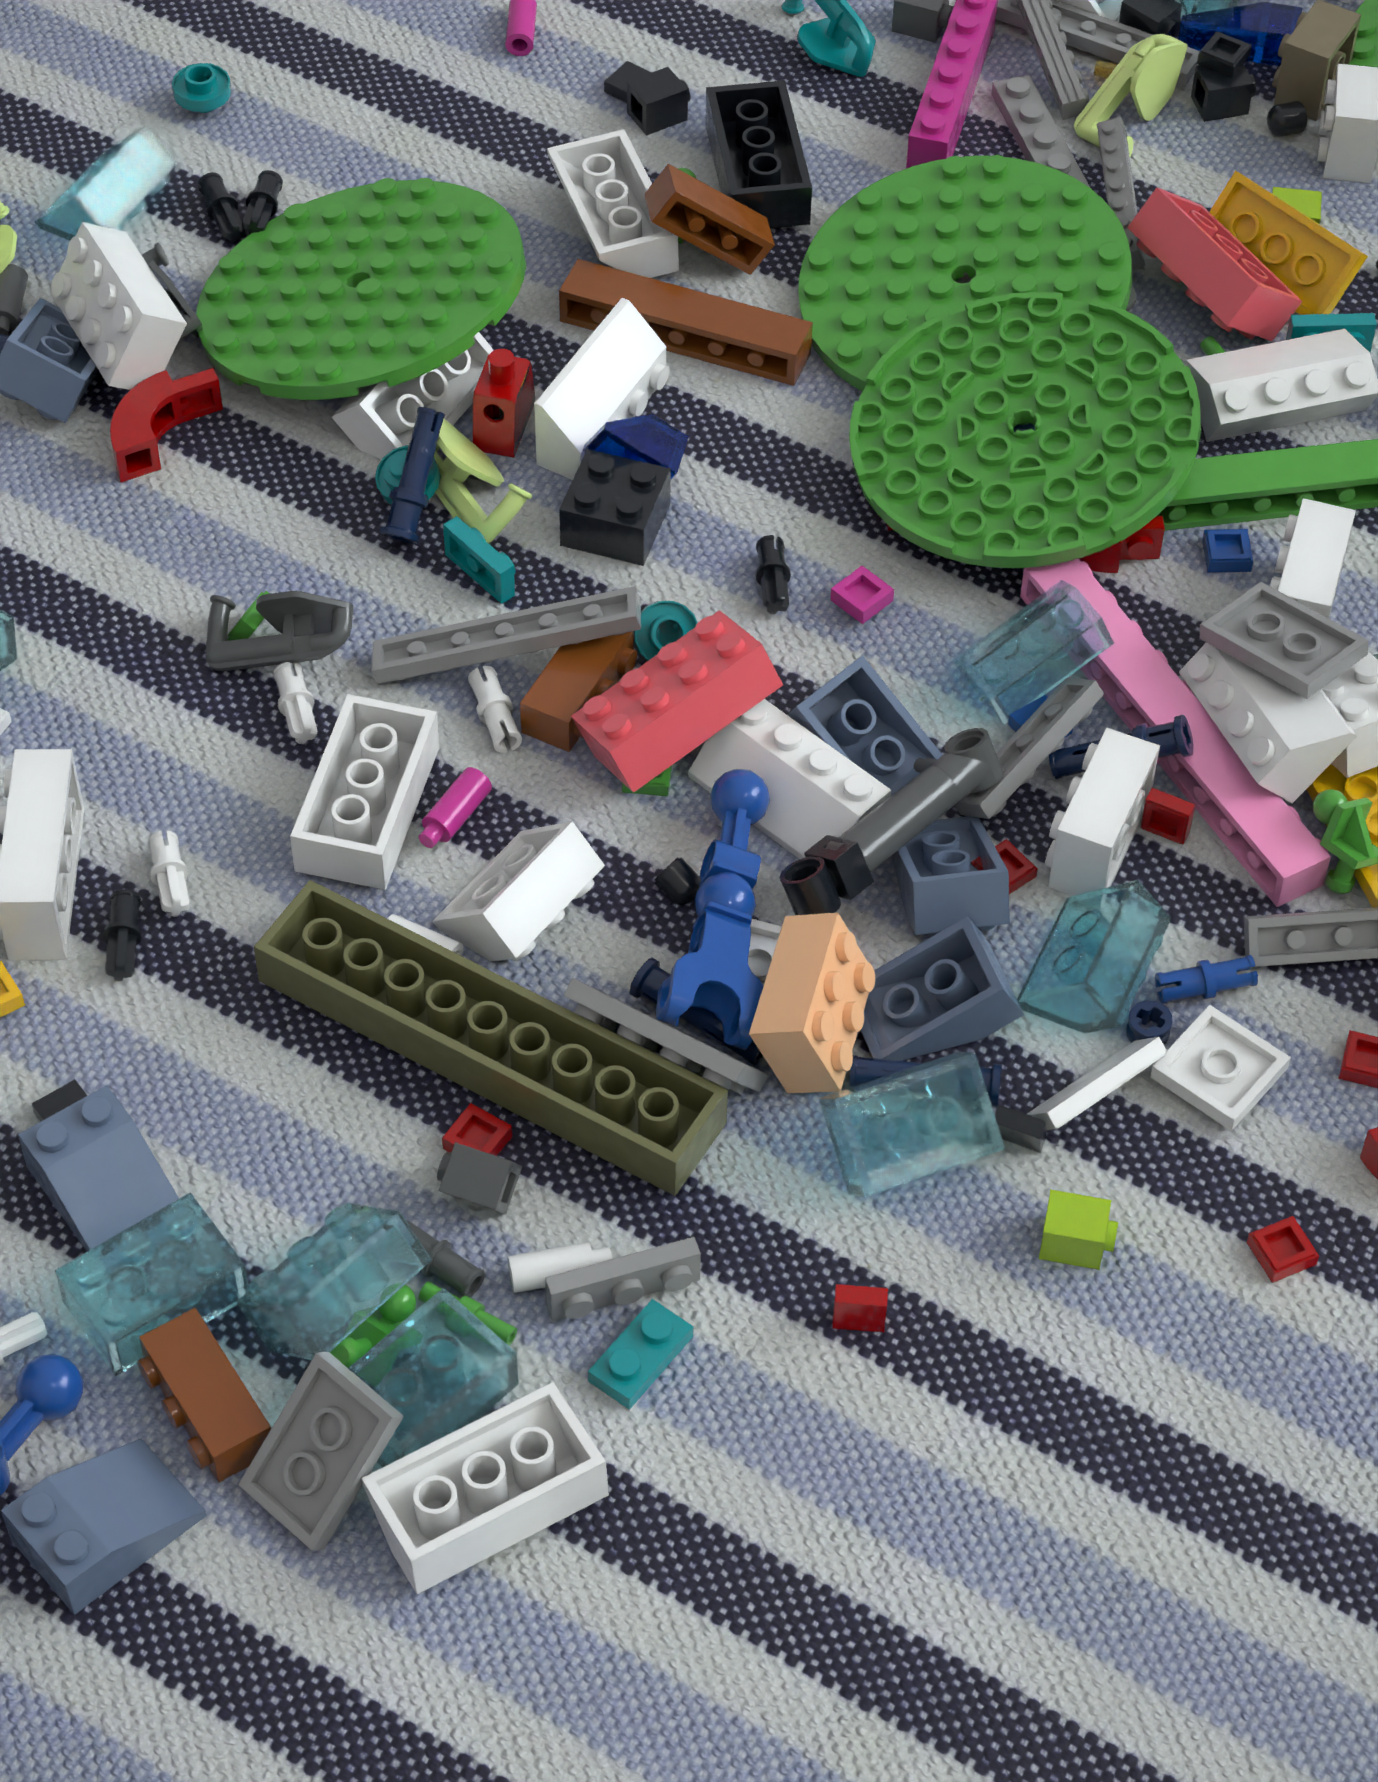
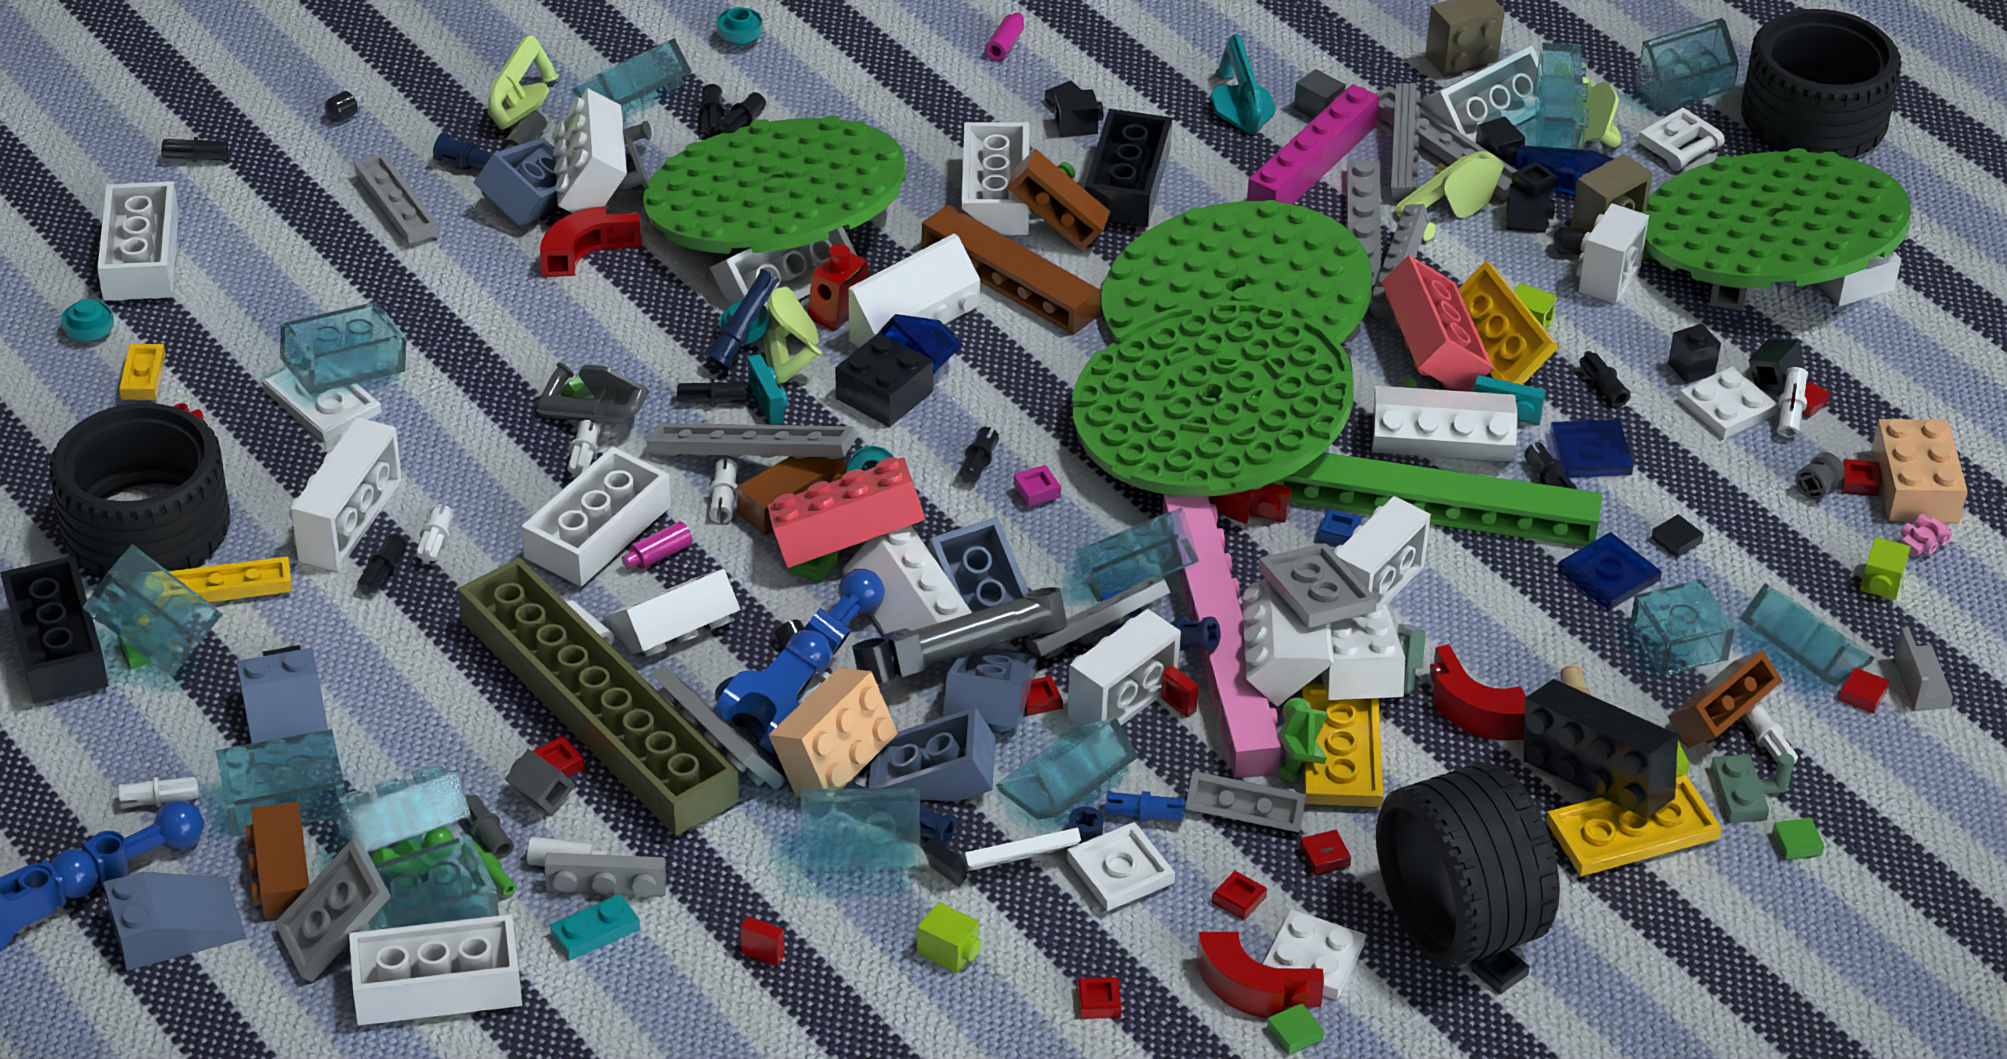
camera: 20 degrees right, 10 degrees down
(414, 581) = (712, 392): none -> black axle

